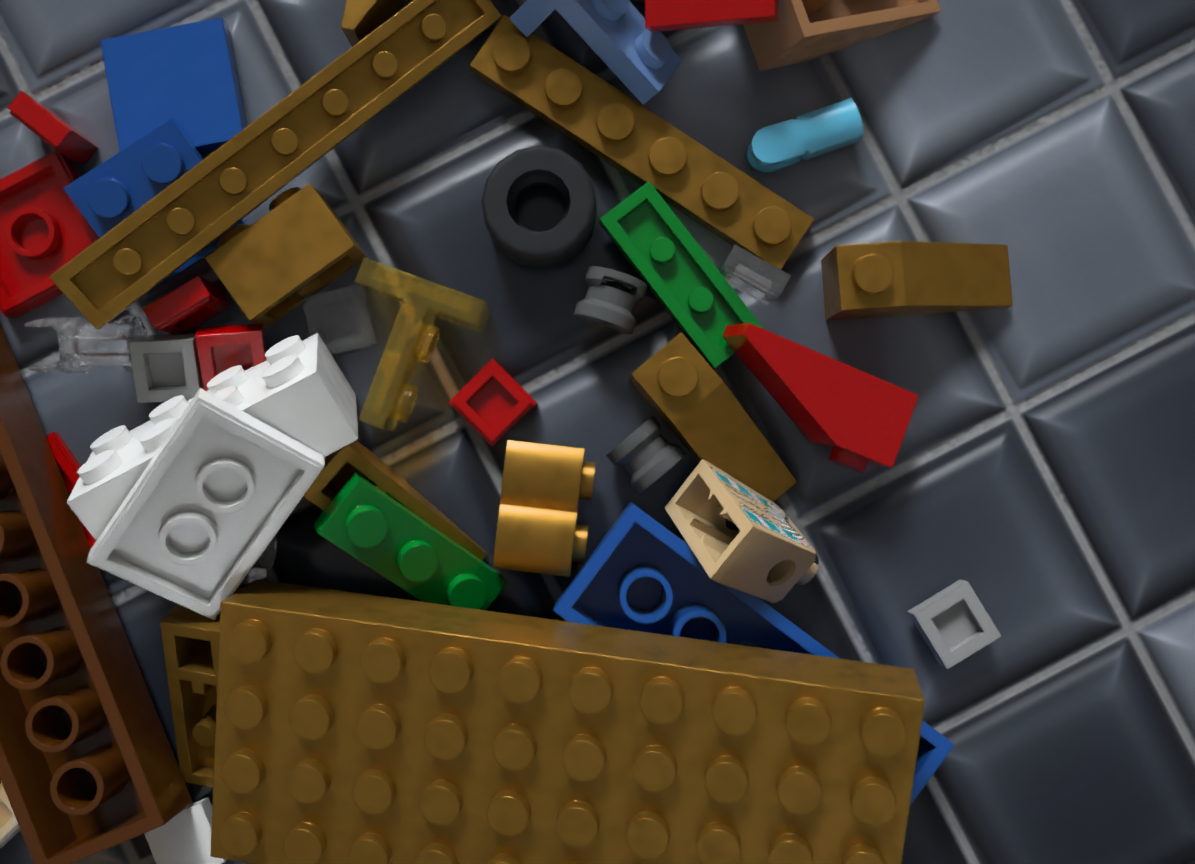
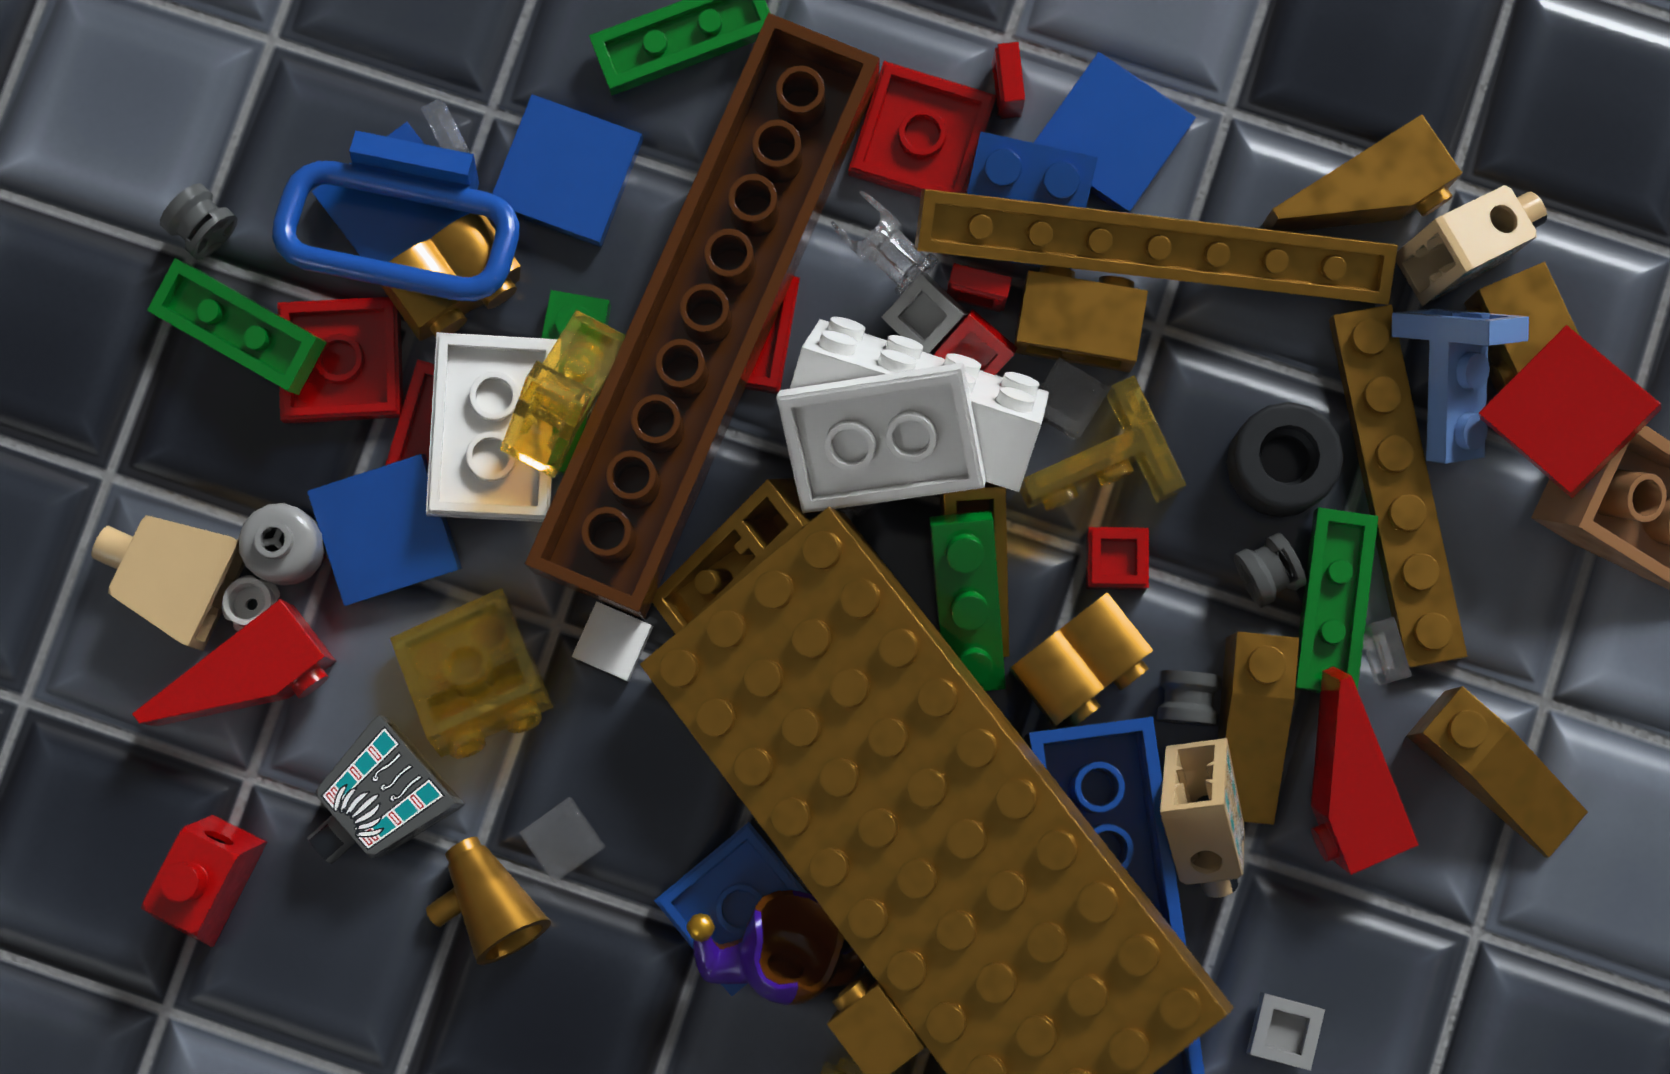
camera: 50 degrees right, 5 degrees down
(805, 137) = (1517, 594): medium azure bar -> none

